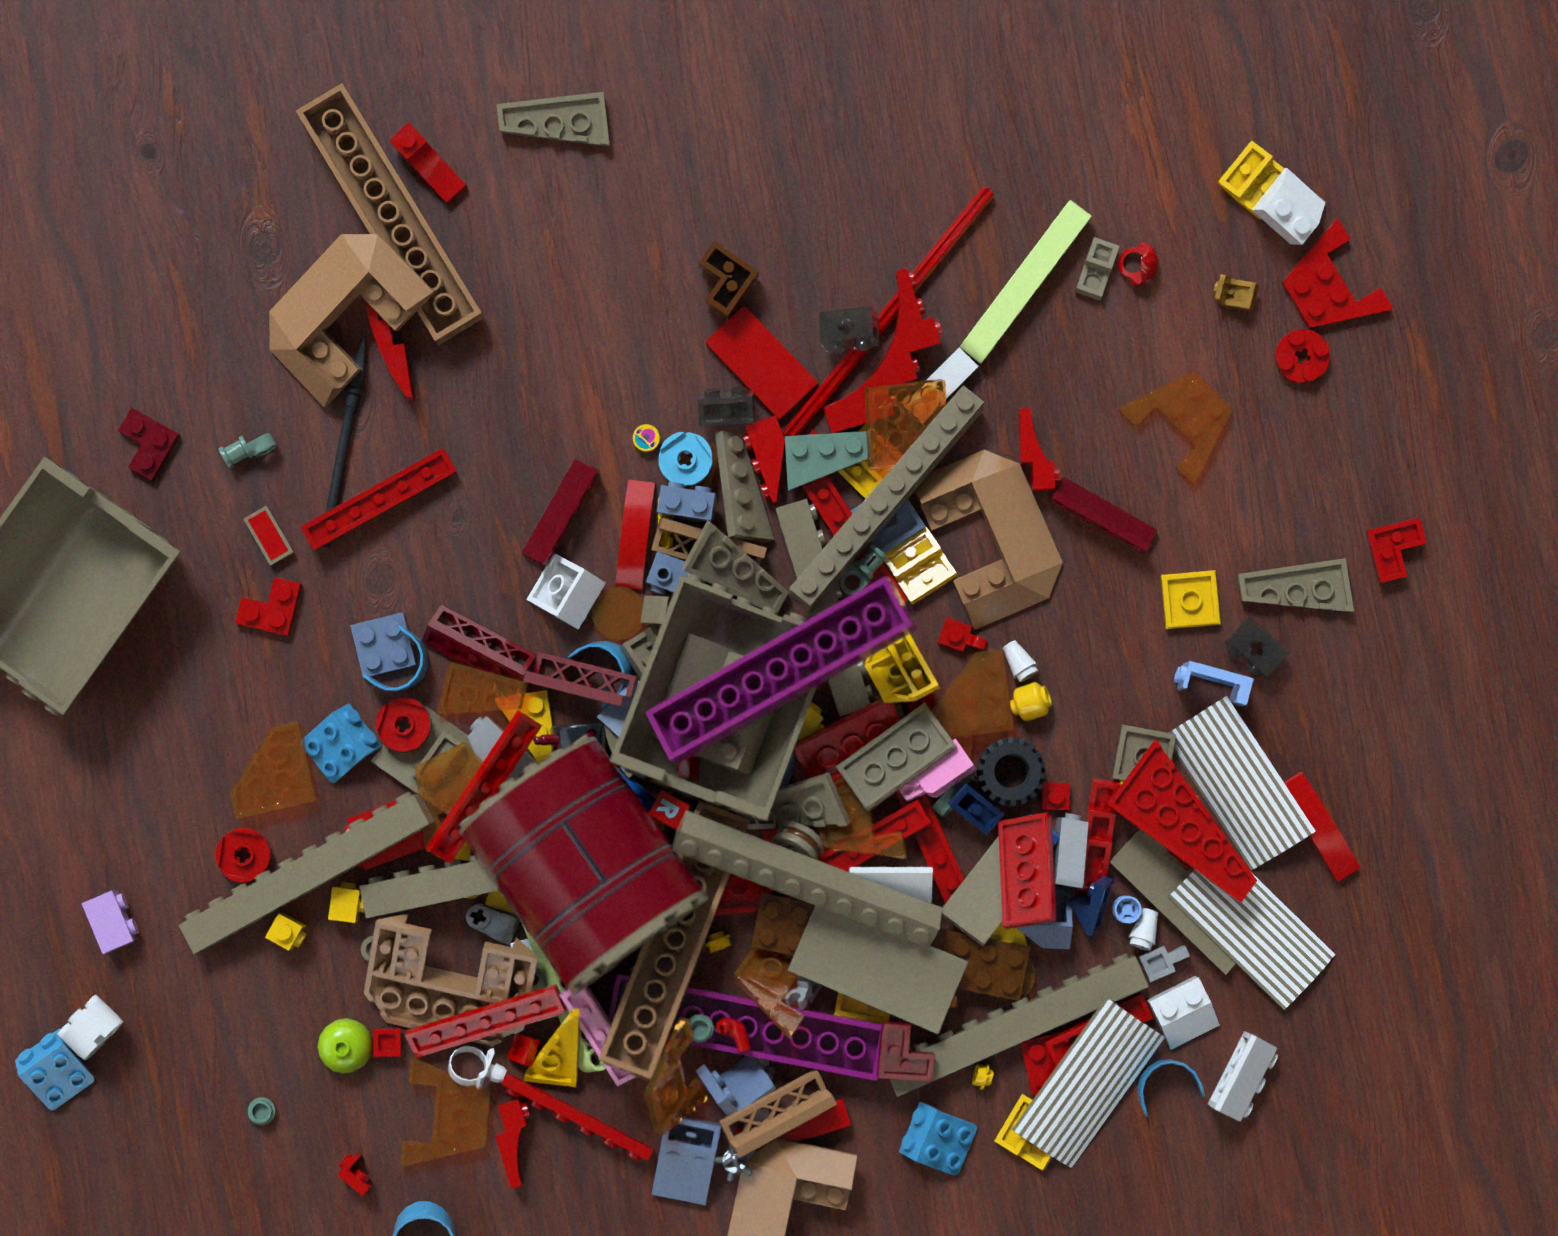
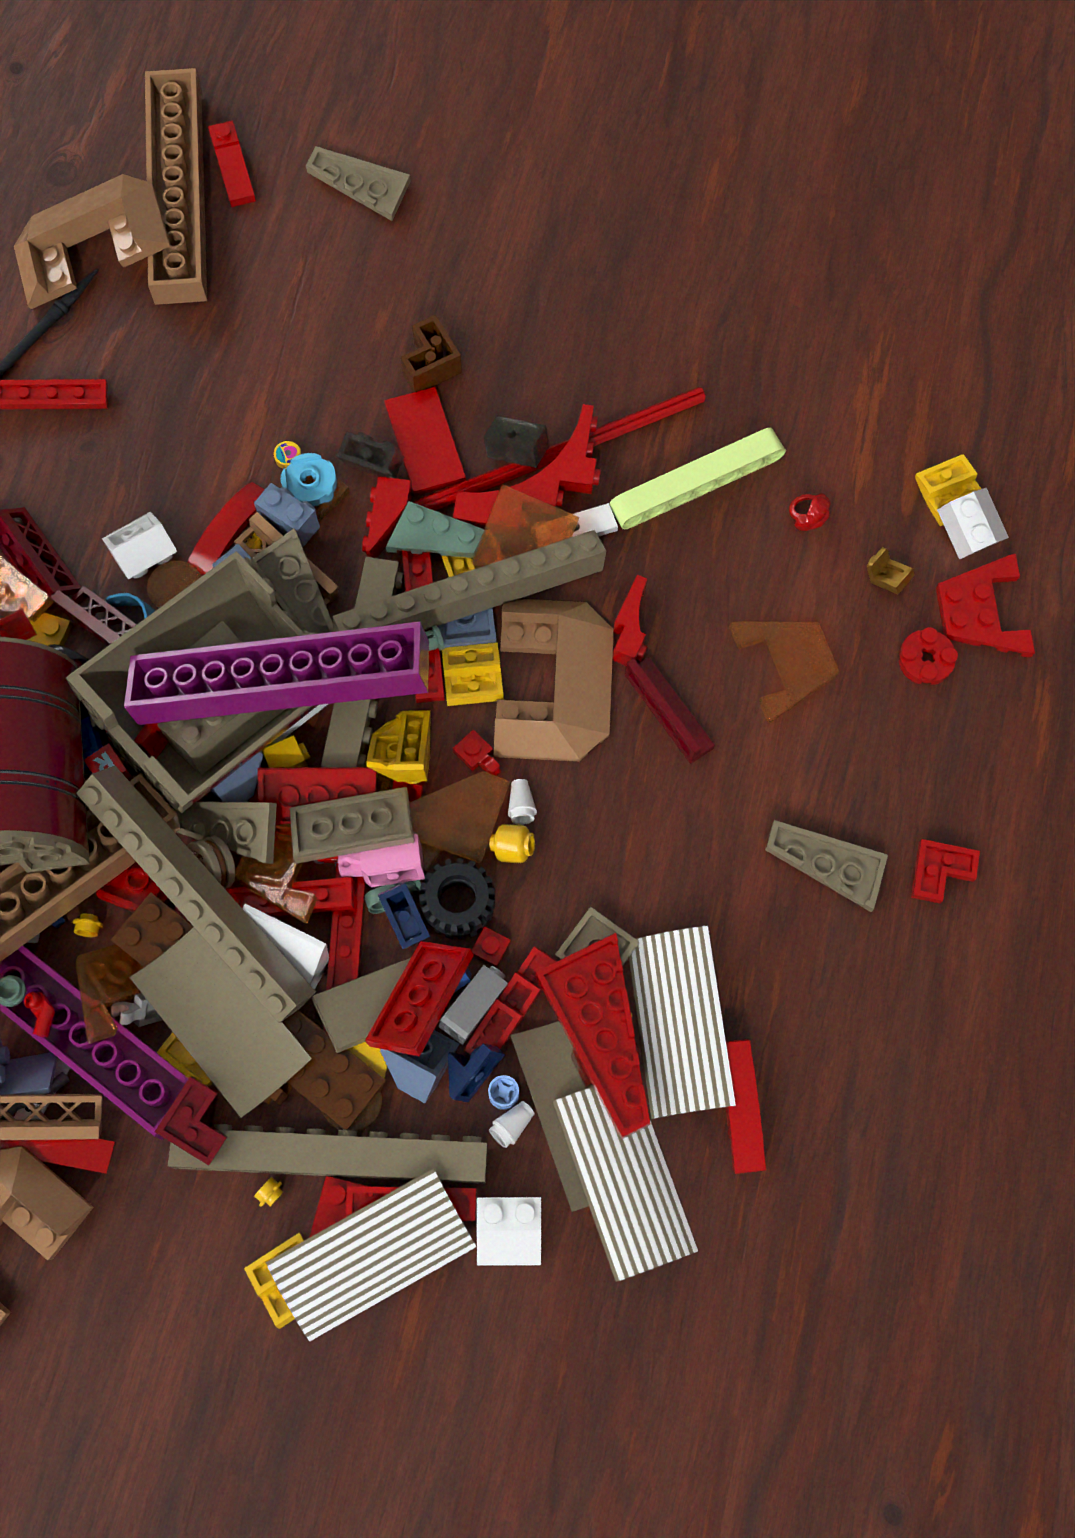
camera: 25 degrees right, 15 degrees down
(394, 355) = (111, 291): red slope -> none
(560, 512) = (176, 480): dark red fence -> none
(741, 496) = (342, 534): dark tan wing -> none
(938, 1139) = (187, 1237): dark azure bracket -> none
(1097, 268) = (769, 498): dark tan slope -> none
(1149, 1069) = (452, 1272): dark azure piece -> none
(1160, 963) = (509, 1165): light grey plate -> none
(1190, 599) = (715, 825): yellow tile -> none
(1240, 683) = (685, 886): light blue panel -> none
(1243, 1076) = (538, 1333): white slope -> none
(1270, 650) = (761, 882): clear smoke brick -> none

